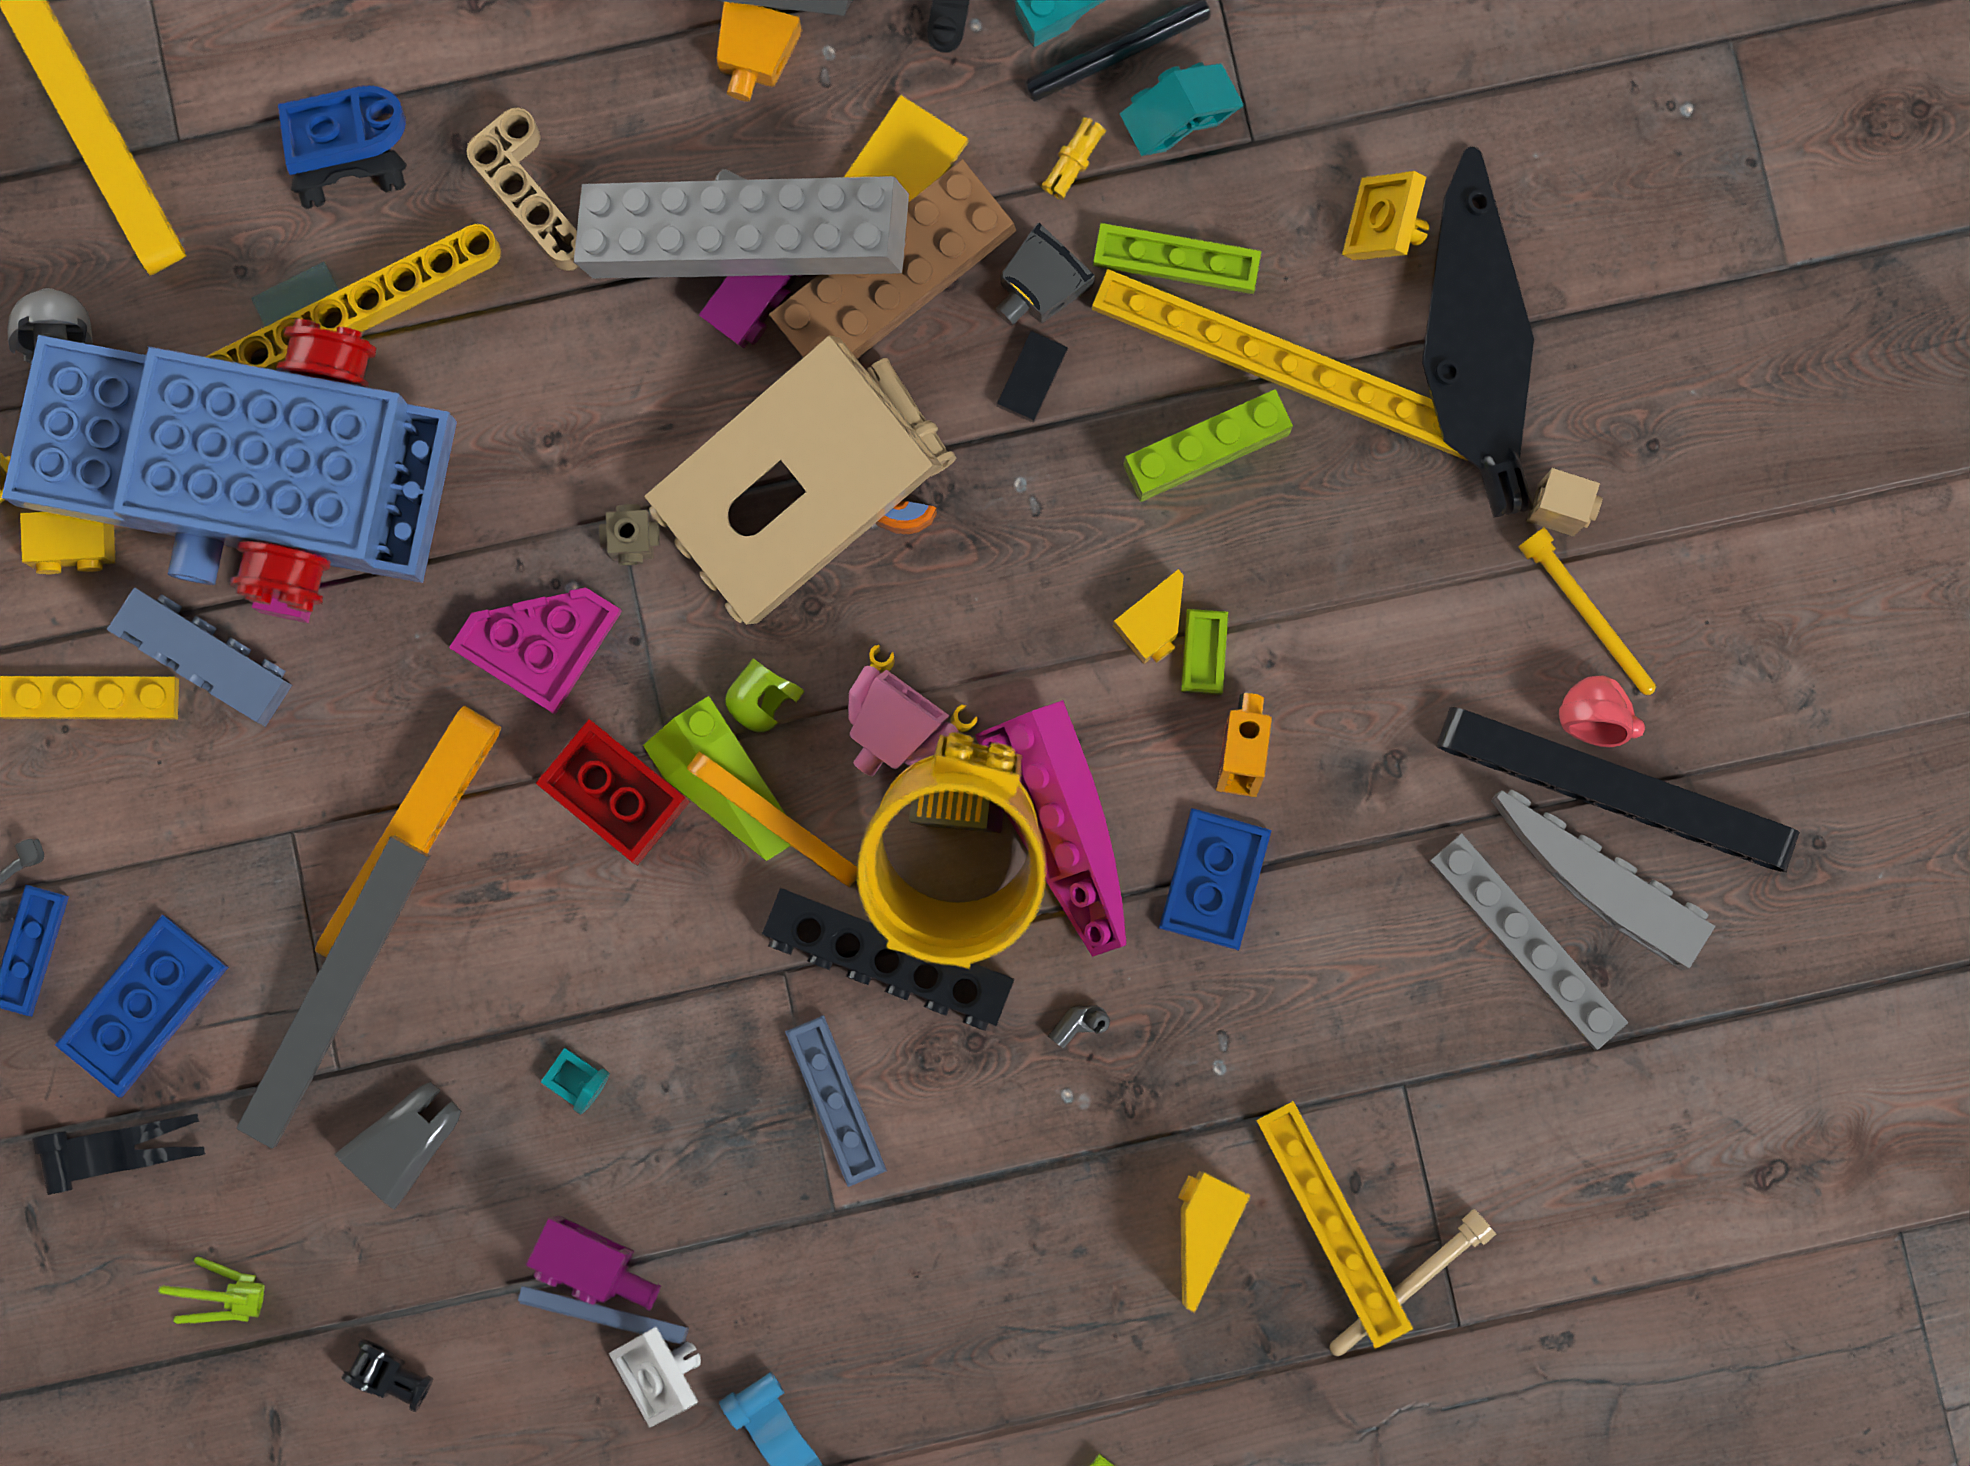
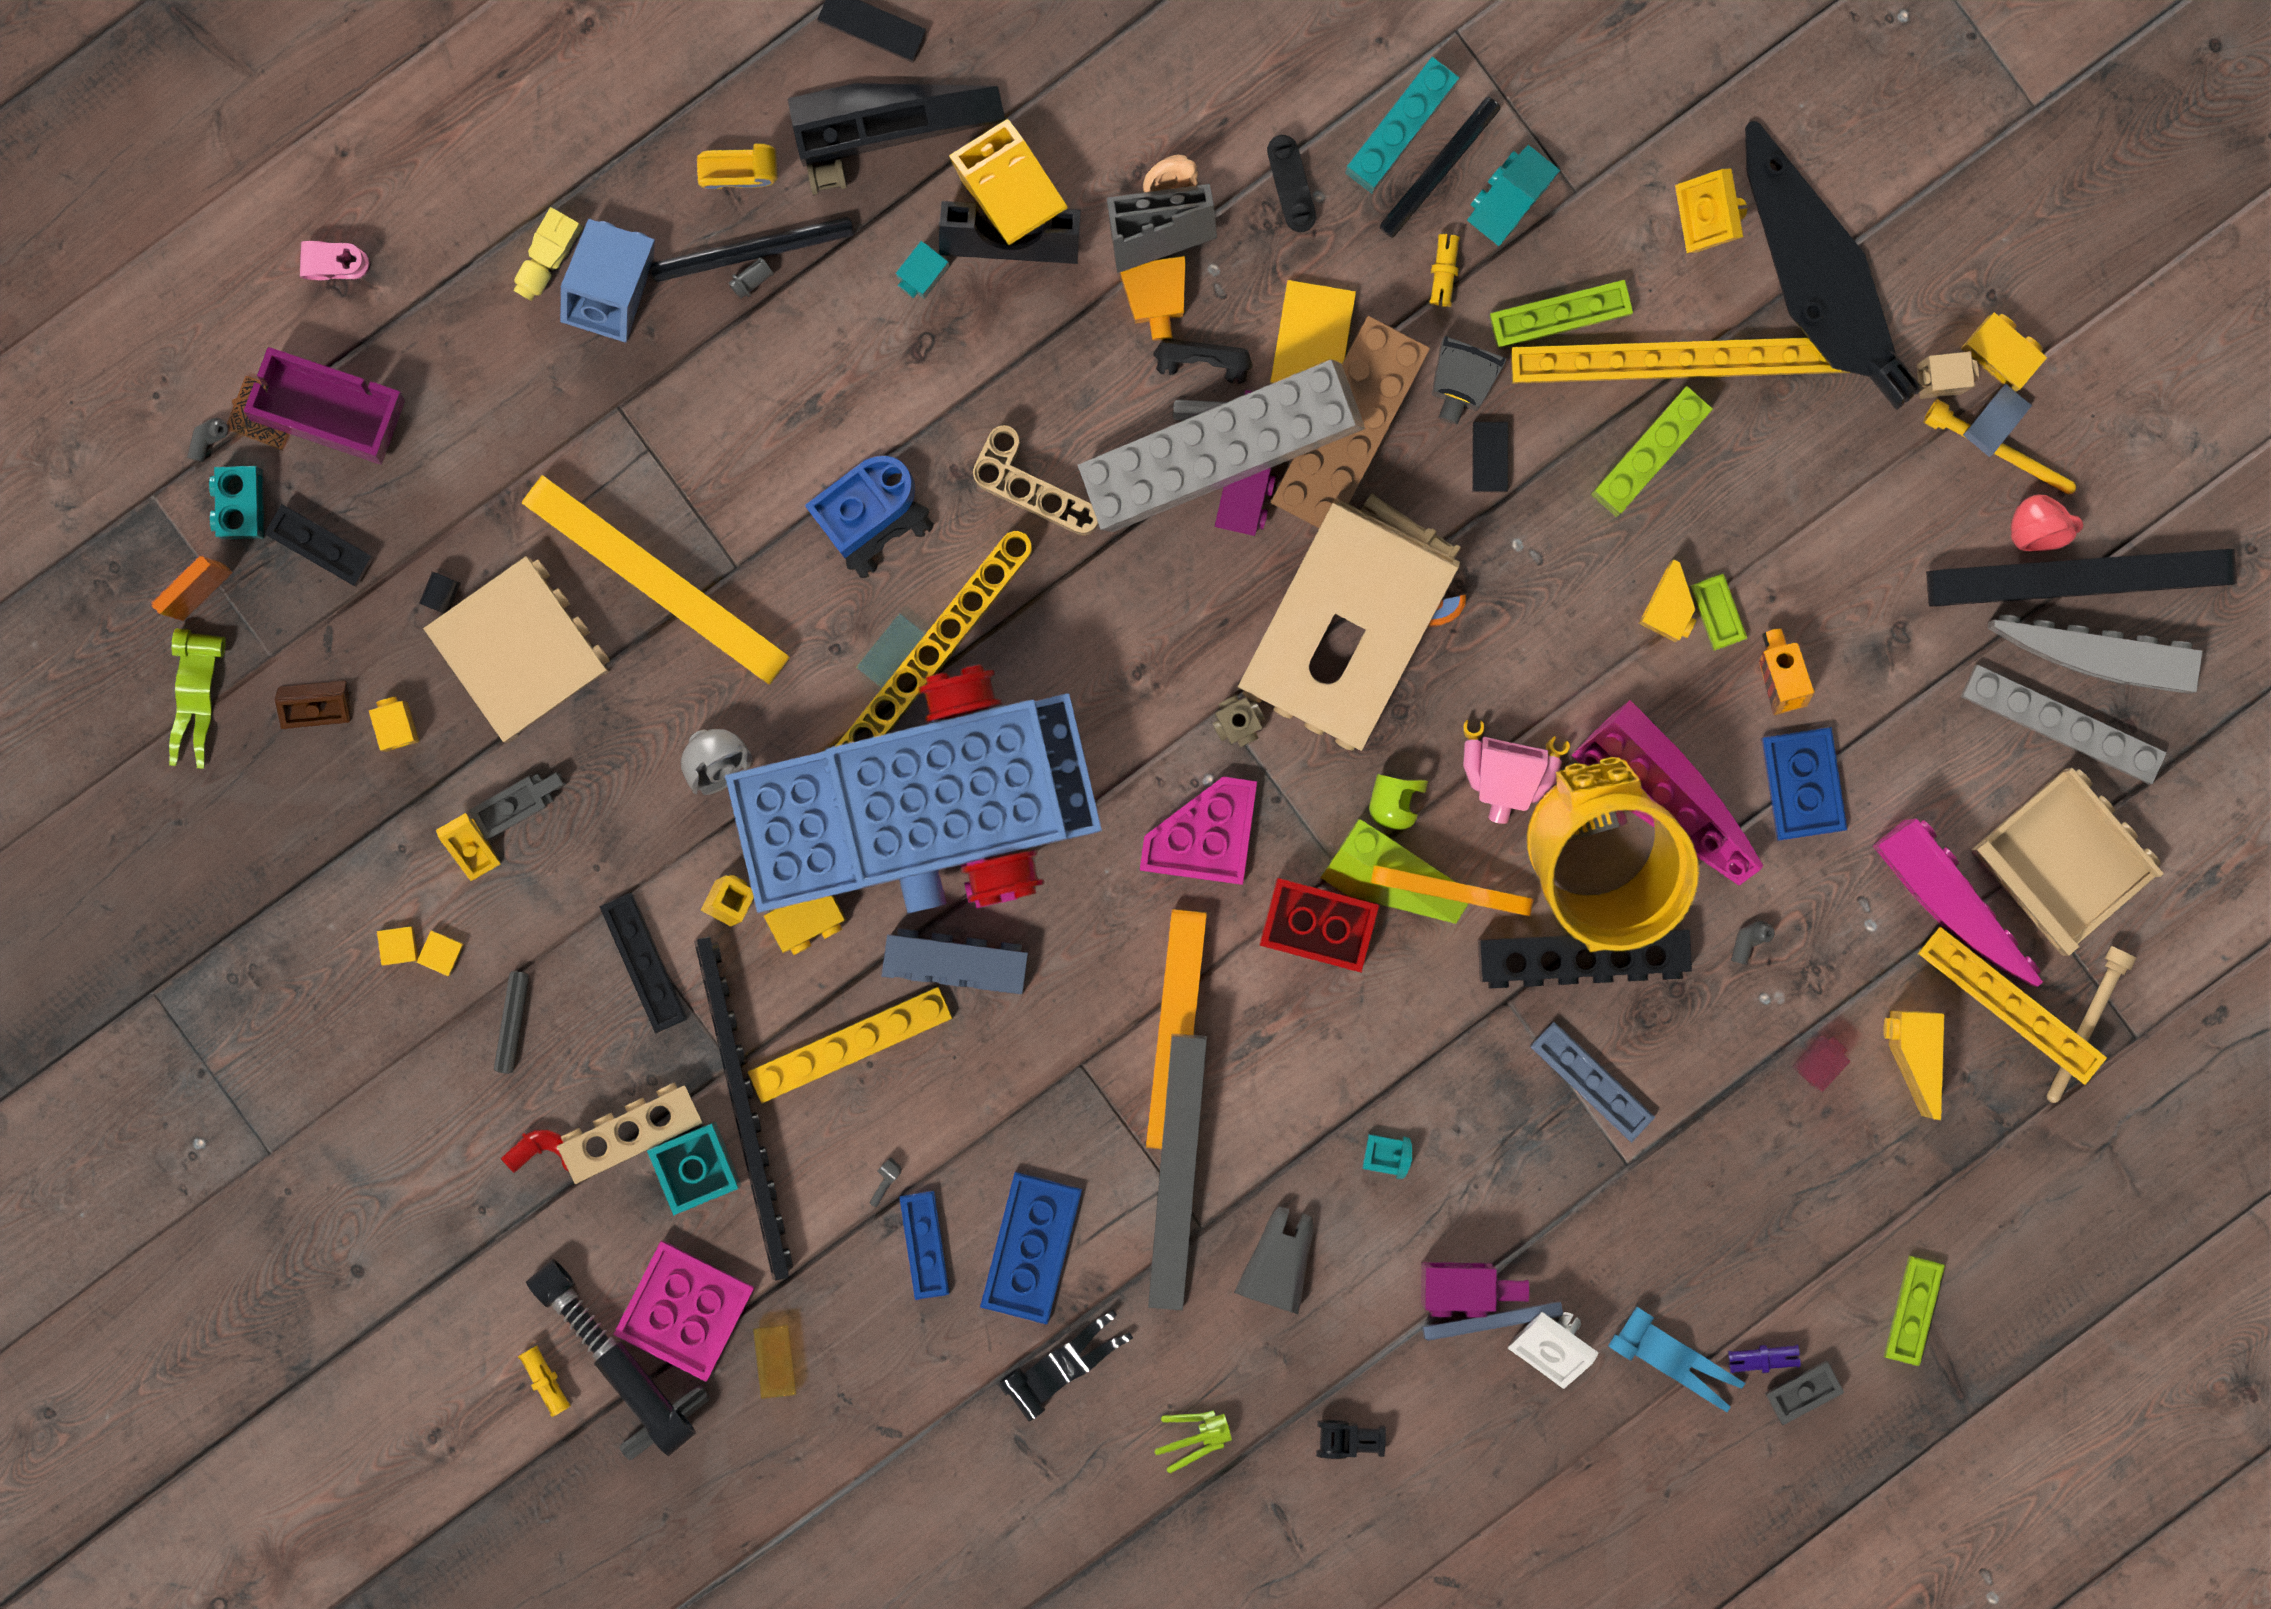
camera: 25 degrees left, 5 degrees up
(805, 152) = (1233, 358): none -> black piece
(1097, 1193) = (1822, 1062): none -> clear pink brick
(1319, 1075) = (1950, 898): none -> dark pink wedge
(1467, 1092) = (2067, 860): none -> tan panel
(1599, 578) = (1997, 420): none -> sand blue tile
(1640, 508) = (2005, 351): none -> yellow brick

